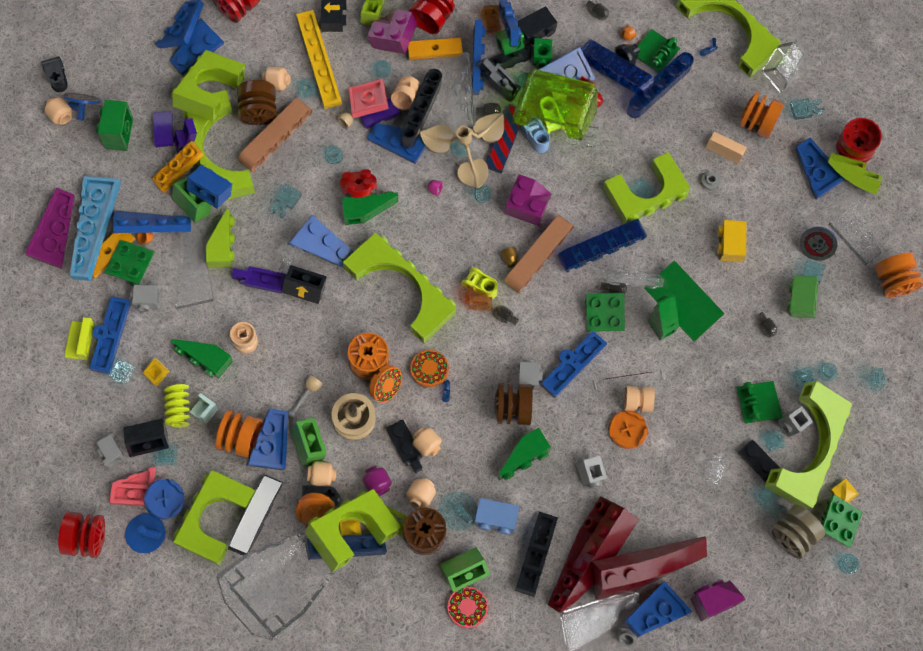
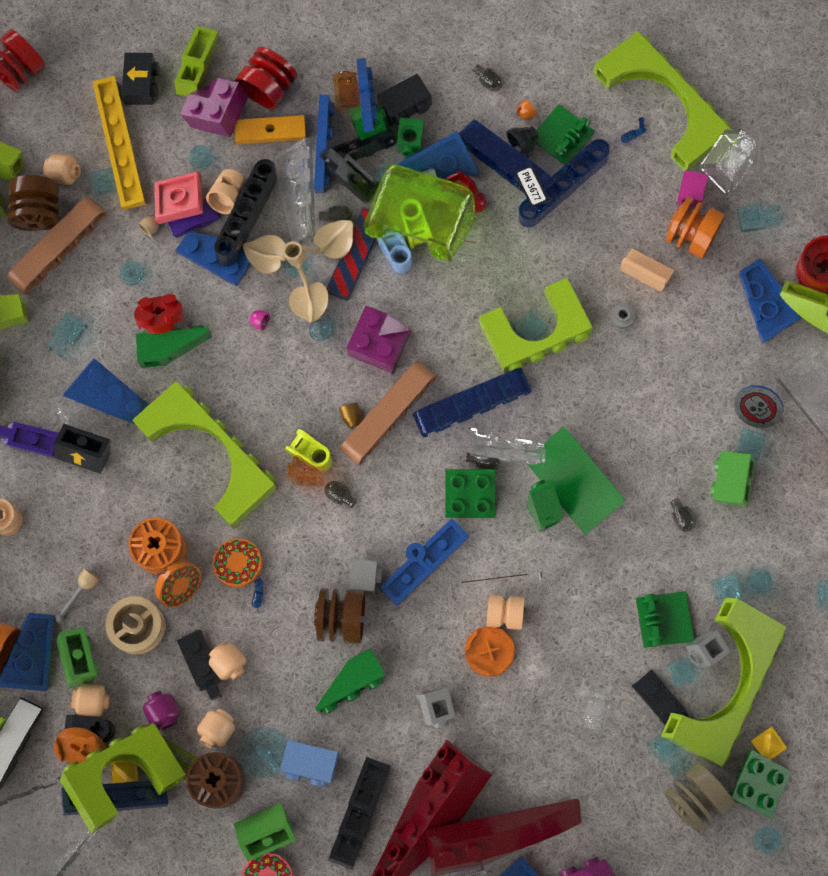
camera: 15 degrees right, 5 degrees up
(640, 84) = (531, 186): none -> sticker
(732, 241) = (645, 399): yellow brick -> none
(756, 83) = (692, 185): none -> dark pink panel

